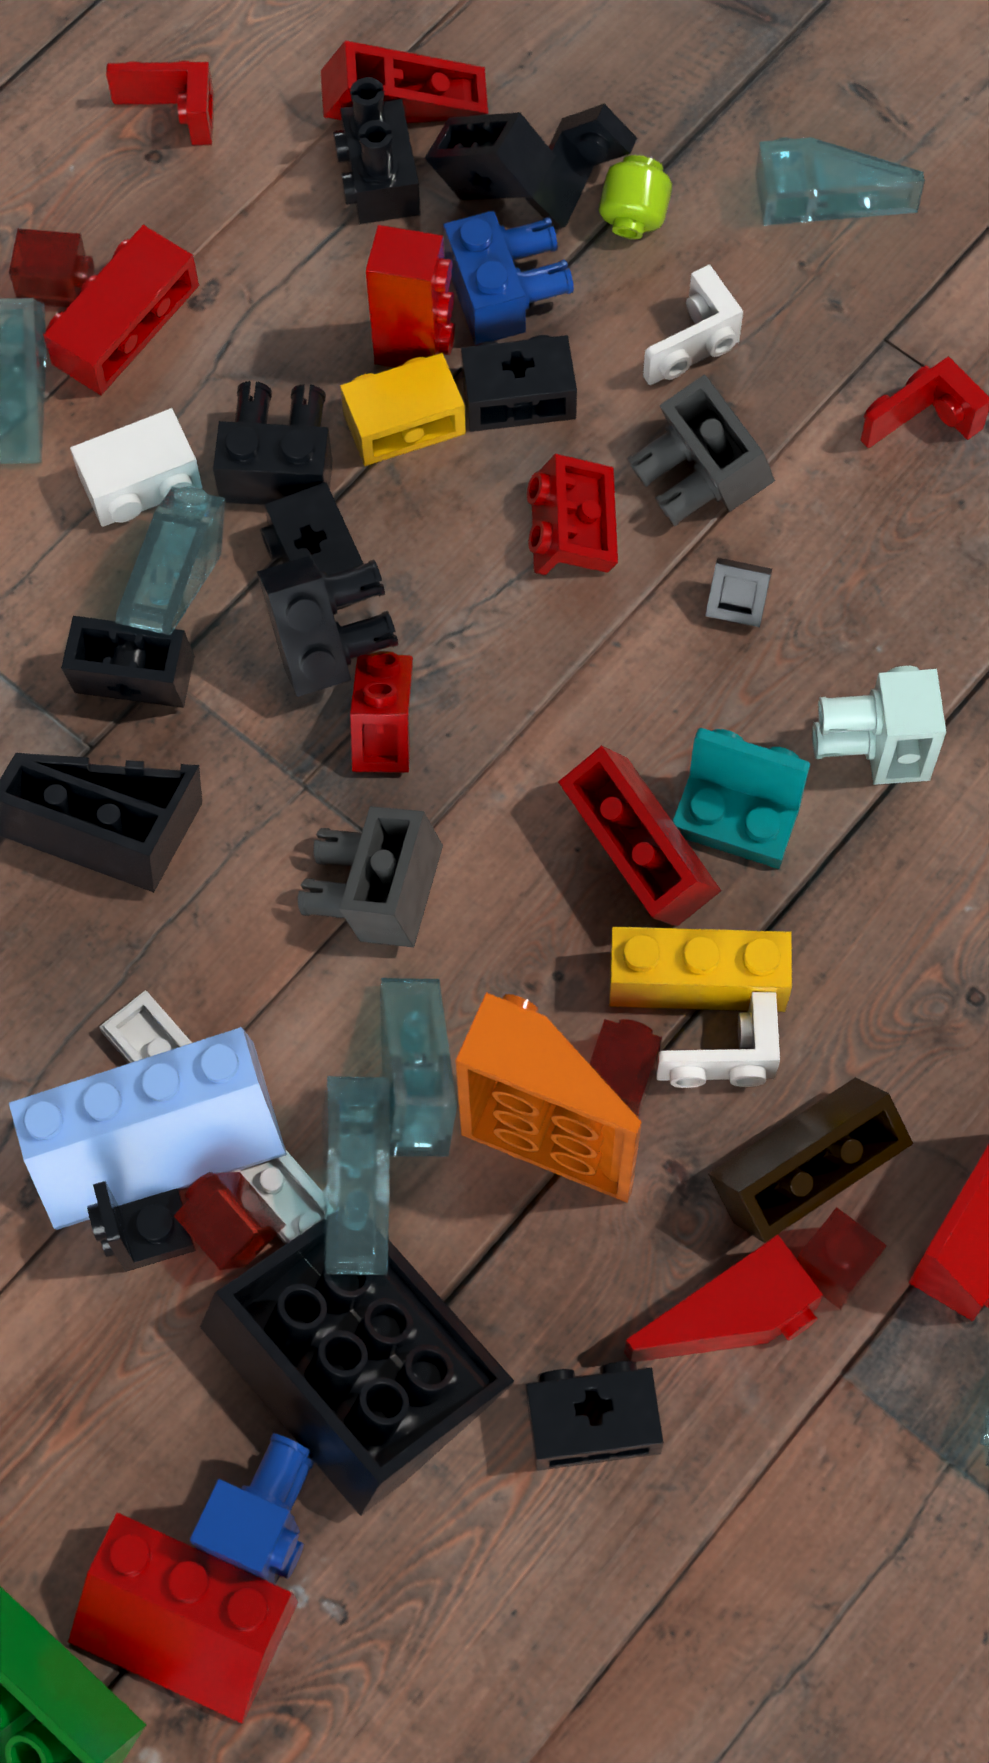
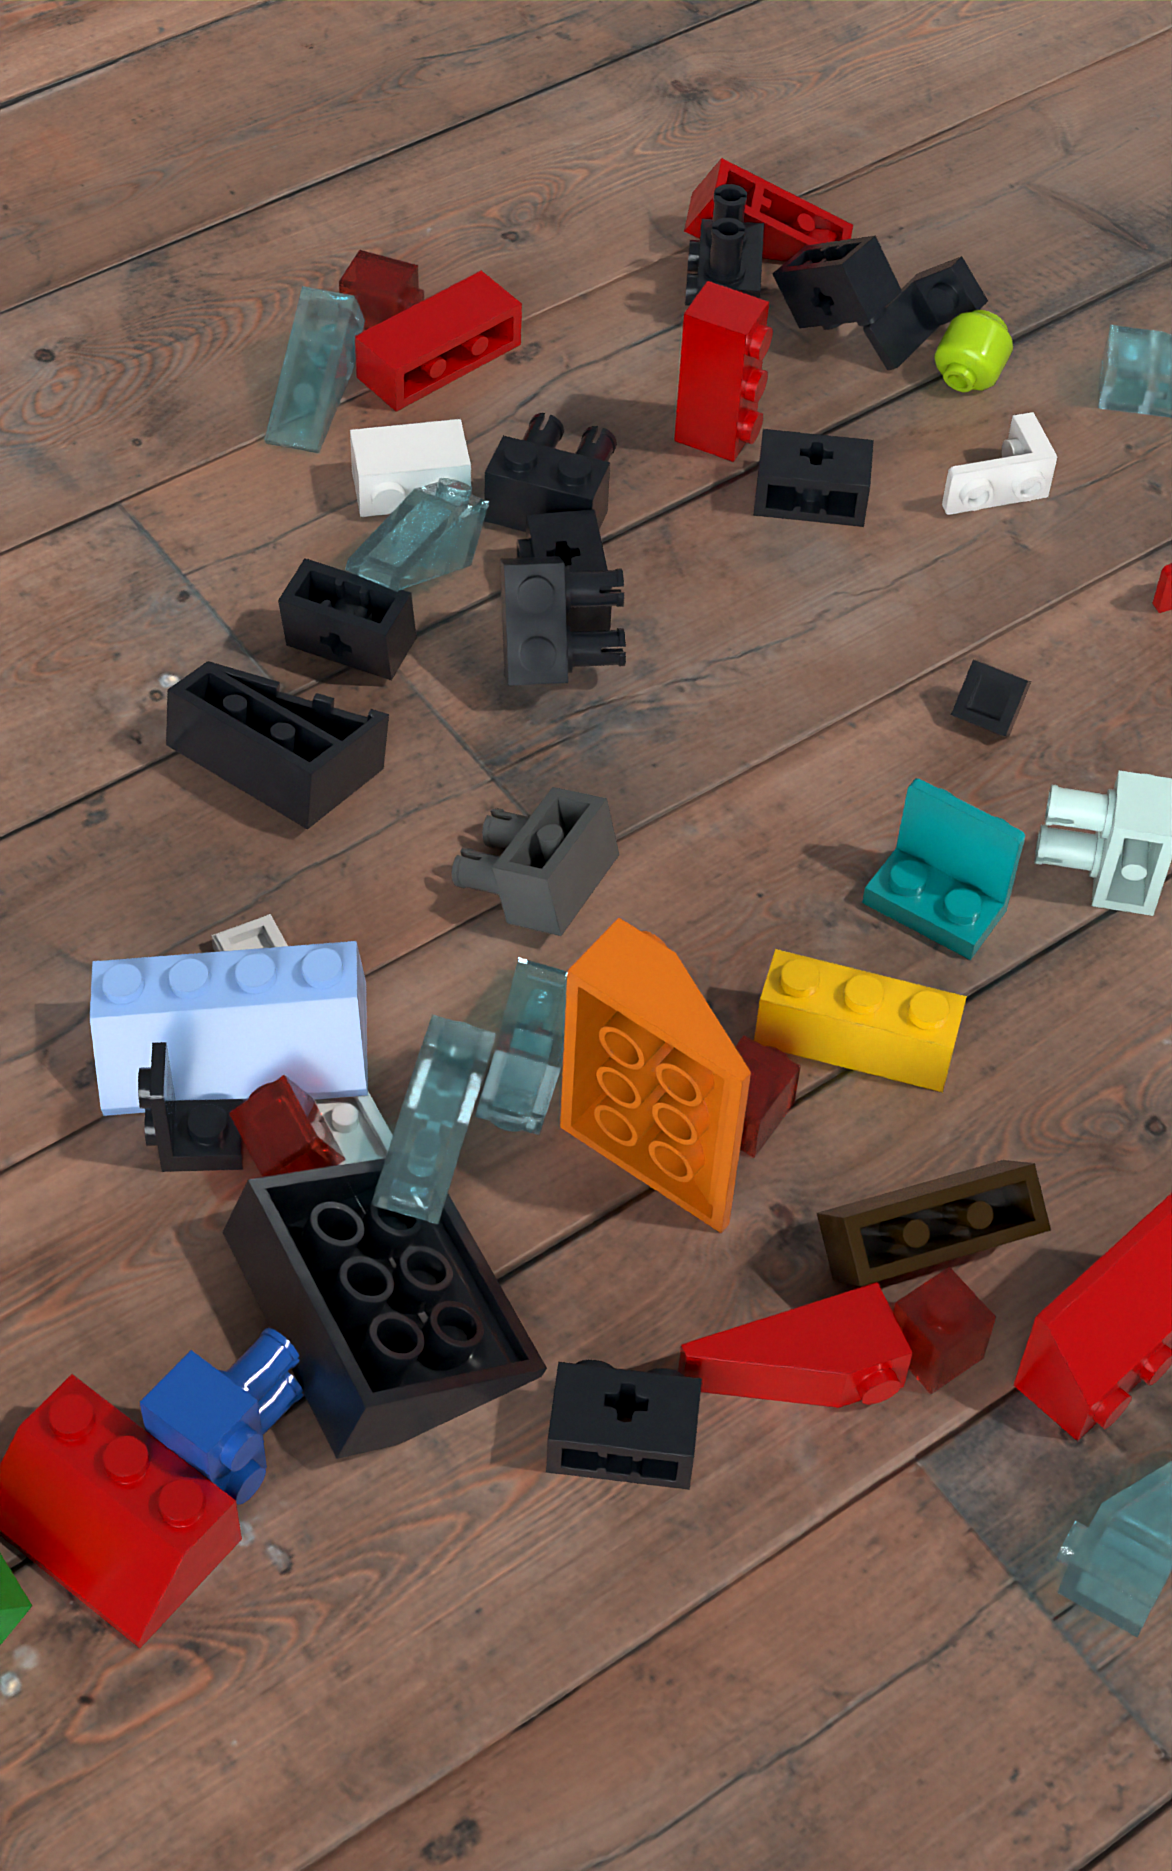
camera: 10 degrees right, 15 degrees down
(168, 83) = (539, 176): red bracket -> none
(381, 713) = (588, 726): red bracket -> none
(403, 408) = (691, 475): yellow brick -> none
(486, 280) = (808, 381): blue brick -> none
(573, 515) = (837, 597): red bracket -> none
(639, 836) = (827, 880): red brick -> none
(710, 434) = (998, 558): dark grey brick -> none
(742, 1066) = (878, 1120): white bracket -> none

